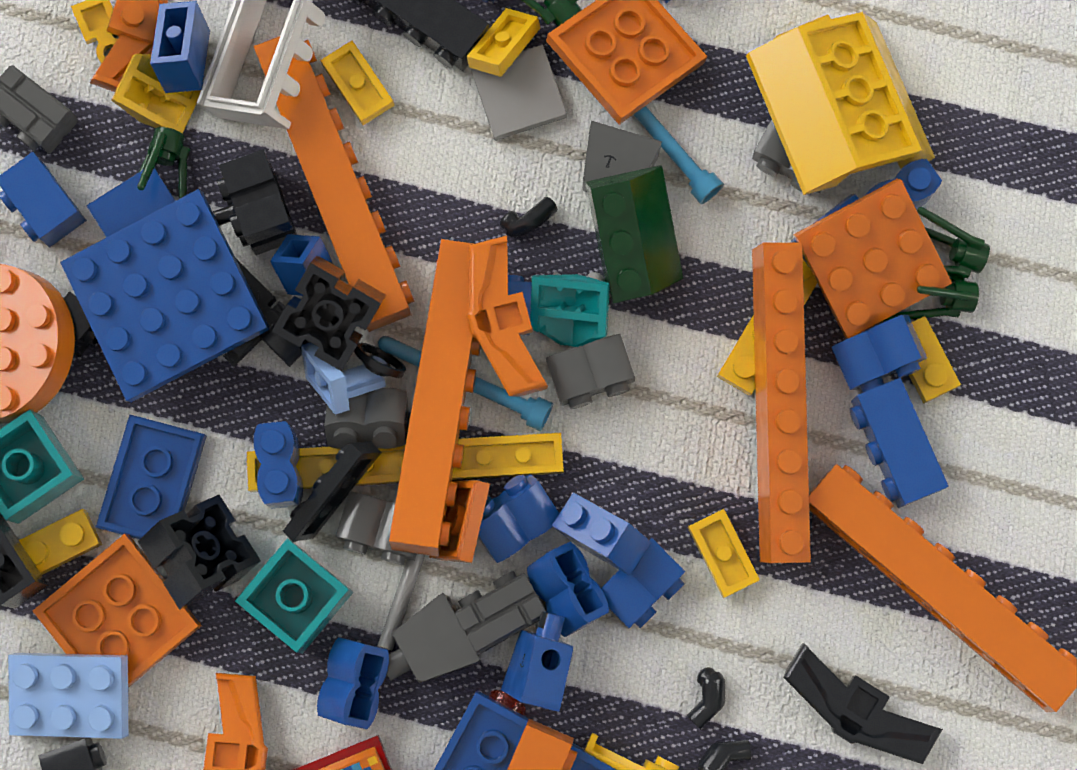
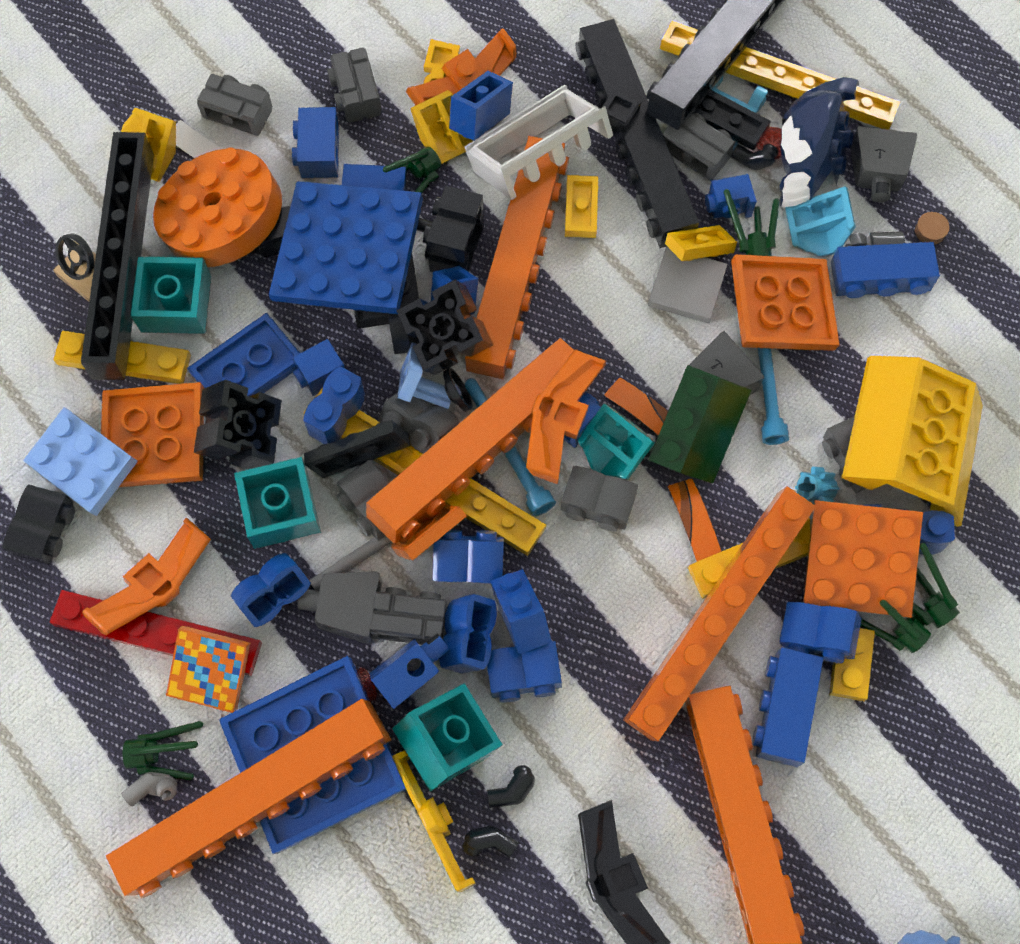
camera: 35 degrees right, 10 degrees down
(227, 434) = (316, 365): none -> blue brick
(529, 221) = (635, 371): black arm -> none
(559, 249) = (637, 404): none -> orange sticker
(621, 697) = (447, 736): none -> teal brick
(691, 325) = (695, 519): none -> orange sticker
(723, 553) = (600, 693): yellow plate -> none
(783, 216) = (817, 485): none -> medium azure gear

